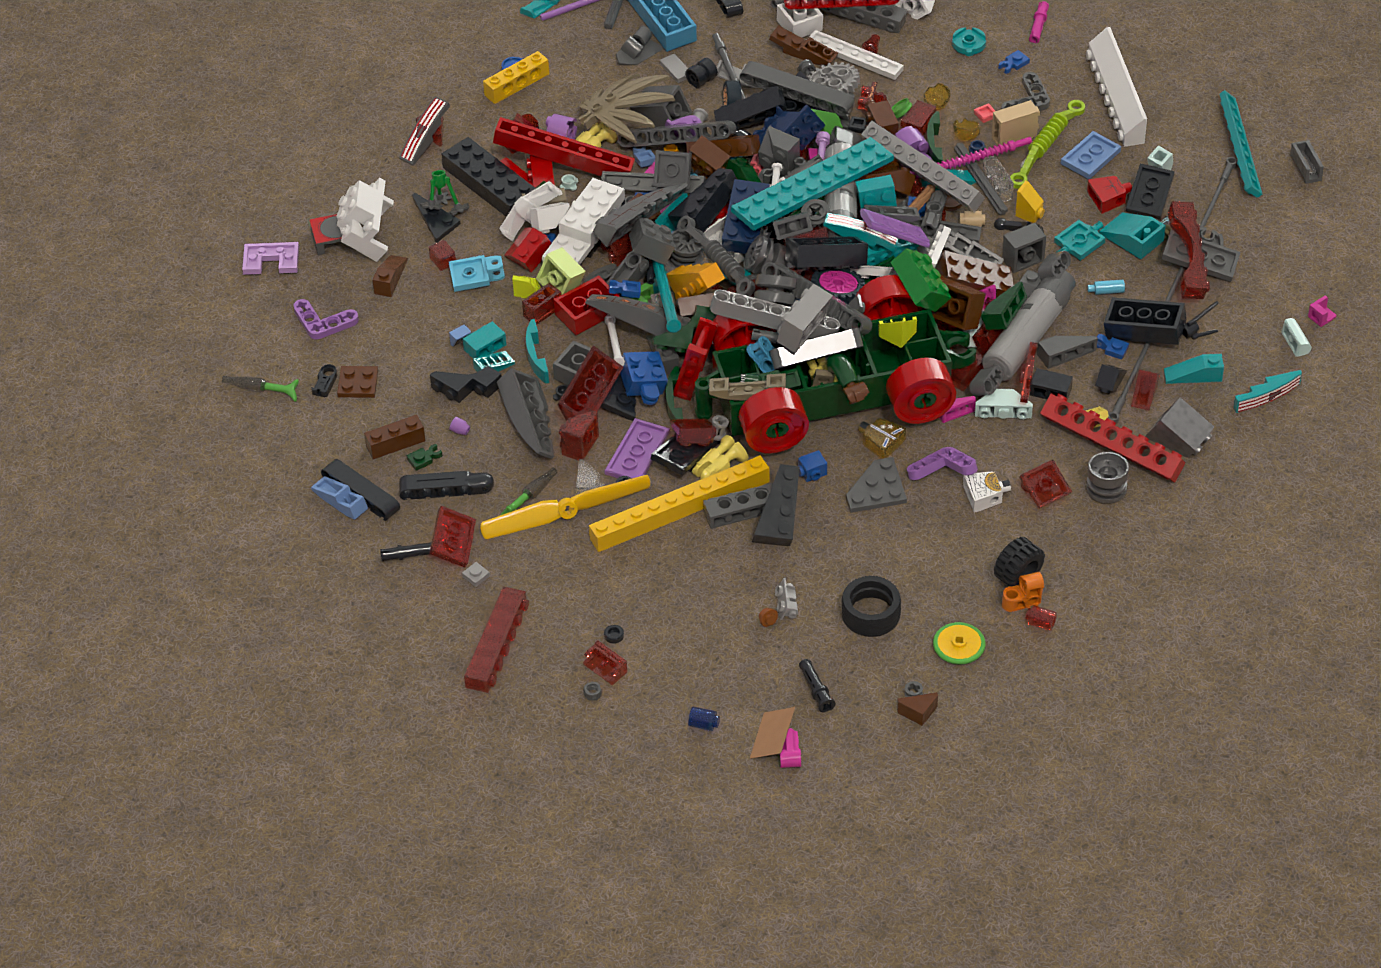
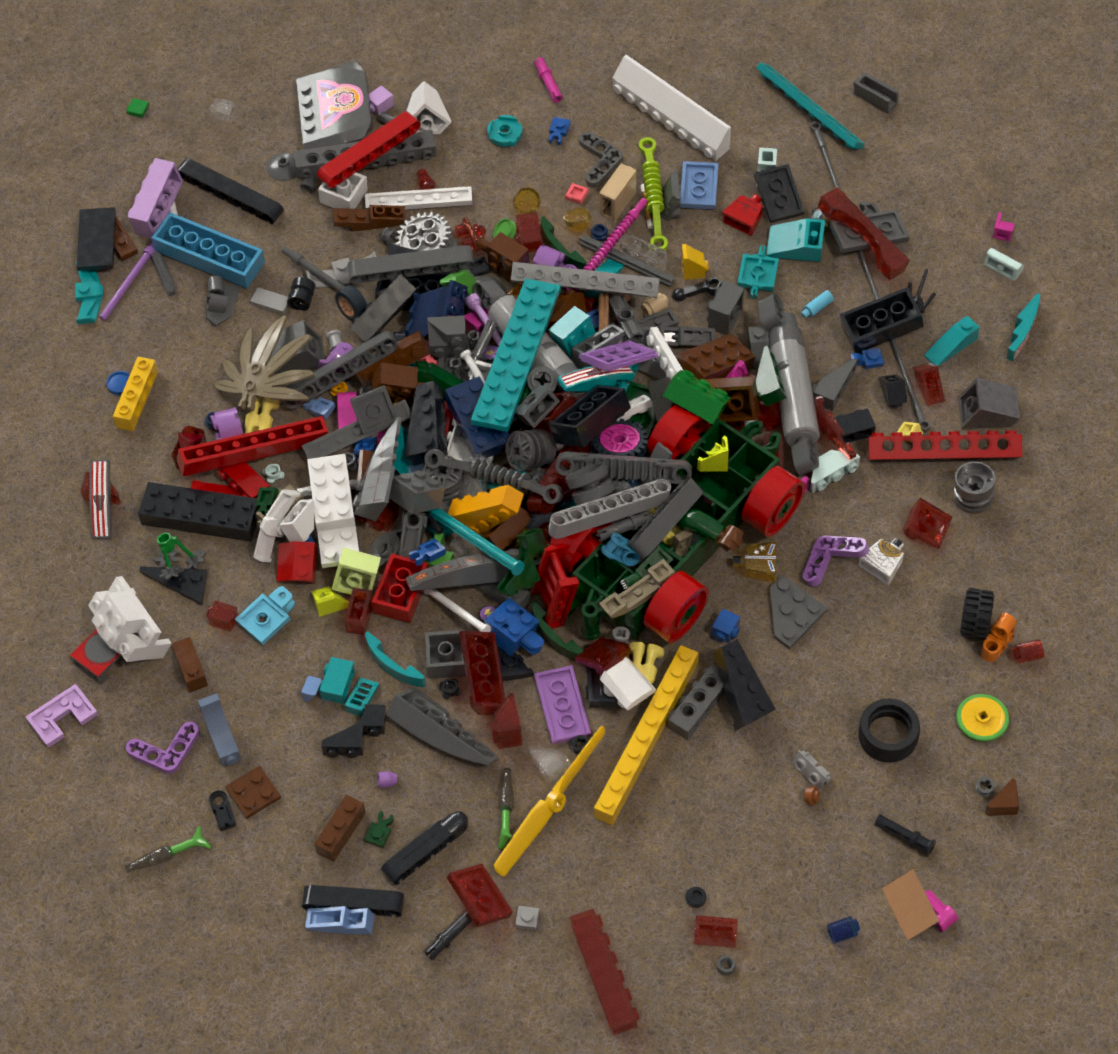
camera: 35 degrees left, 10 degrees up
(368, 322) = (219, 730): none -> sand blue arch
(691, 455) = (626, 684): none -> white slope
(803, 317) = (649, 498): light grey brick -> none
(1057, 150) = (671, 198): none -> dark grey slope

